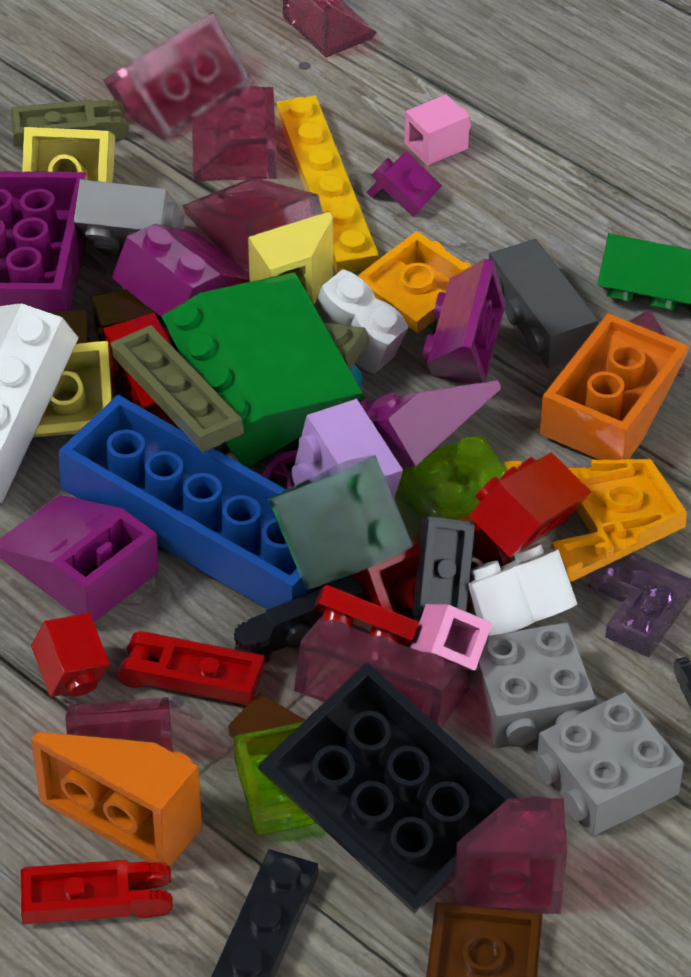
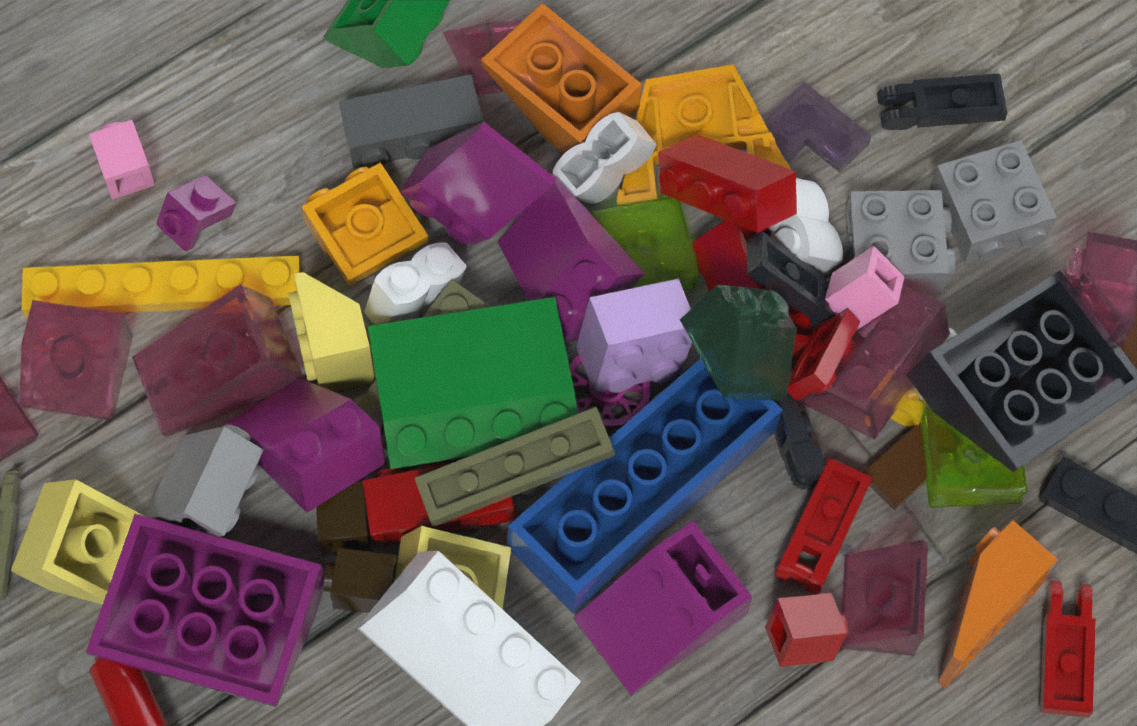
camera: 80 degrees left, 20 degrees up
(537, 424) = (611, 150): none -> white brick

